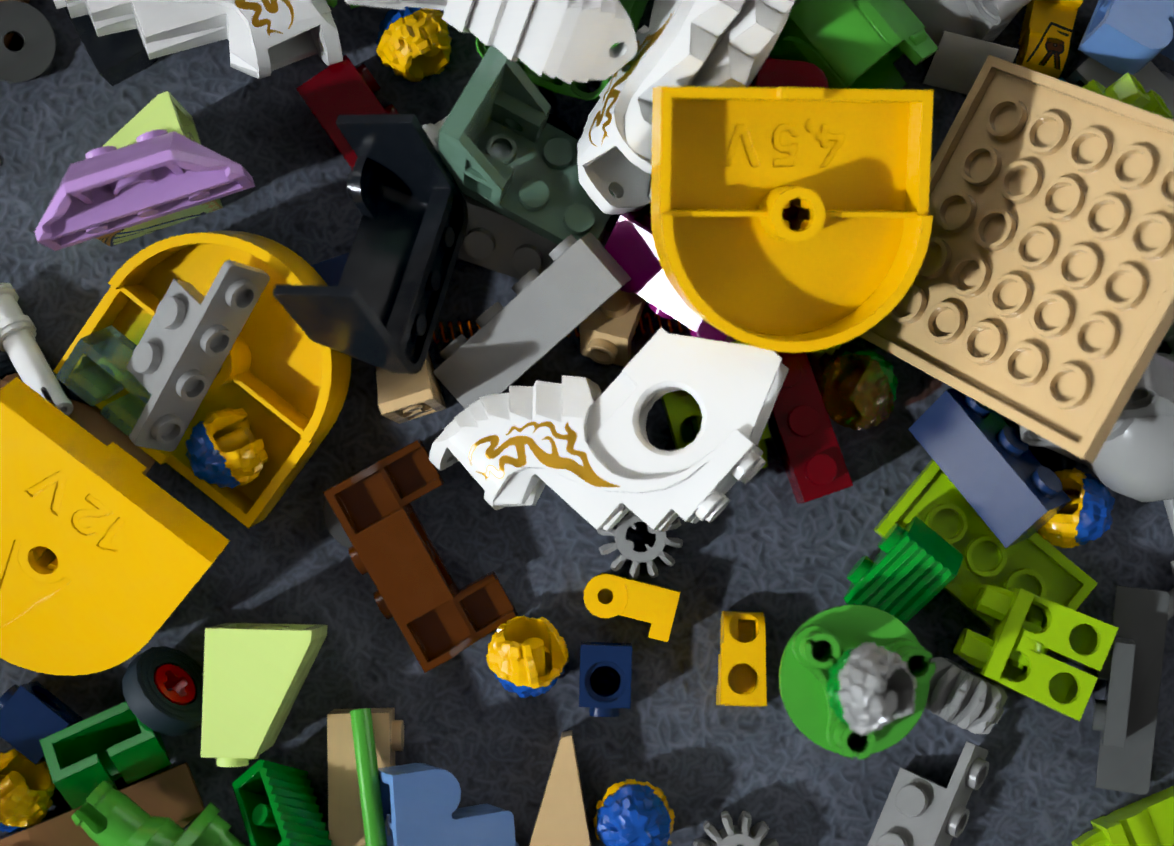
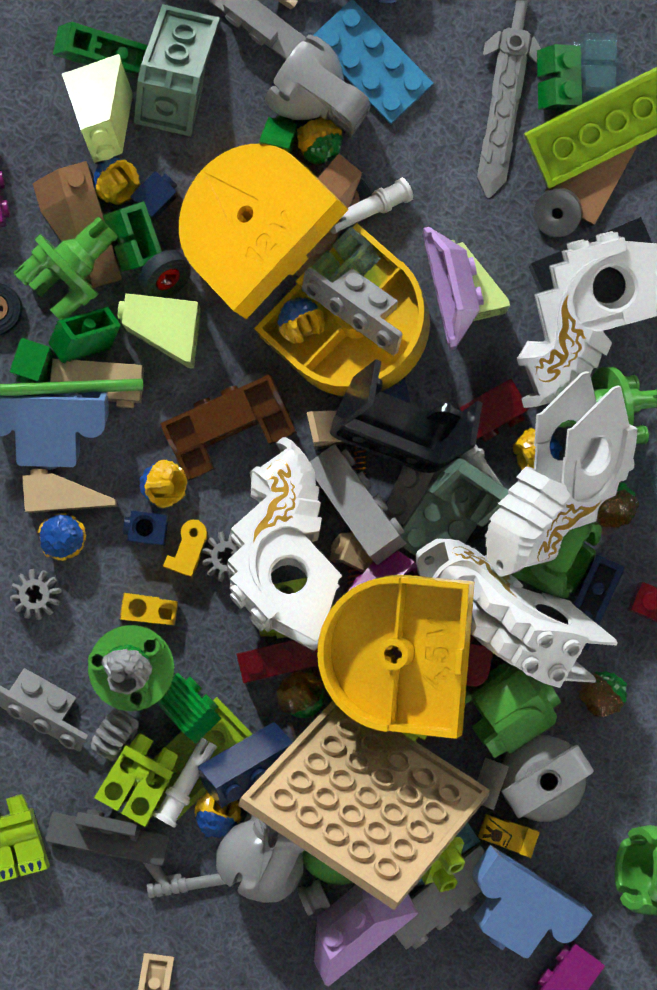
camera: 100 degrees right, 0 degrees up
(1051, 576) = (178, 795): none -> white pin

